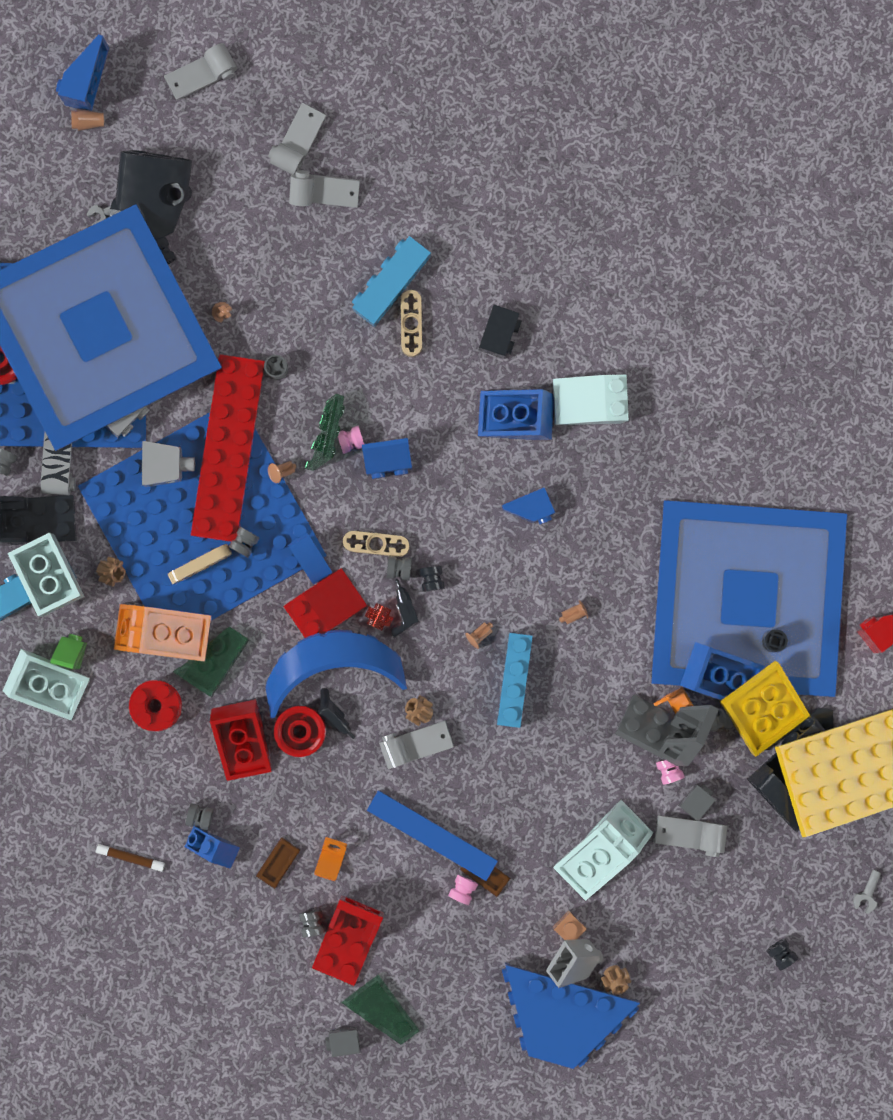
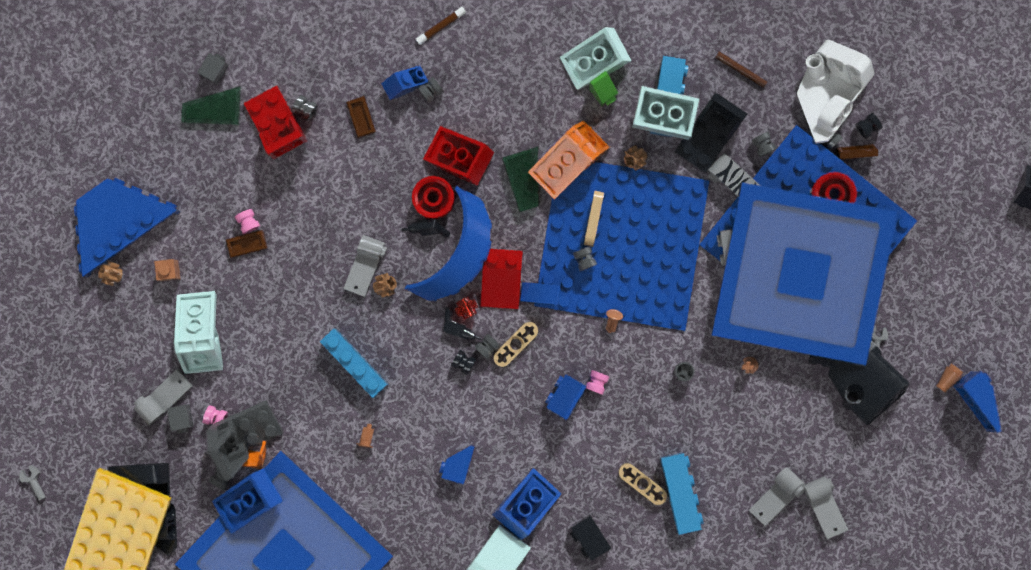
camera: 135 degrees right, 0 degrees up
(140, 705) = (529, 106): red wheel -> none
(163, 464) = (678, 247): light grey torso -> none
(214, 66) = (921, 479): light grey door -> none
(228, 448) = (655, 297): red plate -> none
(325, 440) = (614, 374): clear green wing -> none
(330, 859) = (335, 151): orange bracket -> none
(432, 835) = (297, 229): blue tile -> none
(479, 634) = (402, 364): nougat piece -> none
(574, 962) = (142, 255): light grey torso -> none
(765, 708) = (203, 512): yellow plate -> none
(774, 640) = (245, 552): black wheel -> none
(782, 954) = (38, 393): black wheel -> none

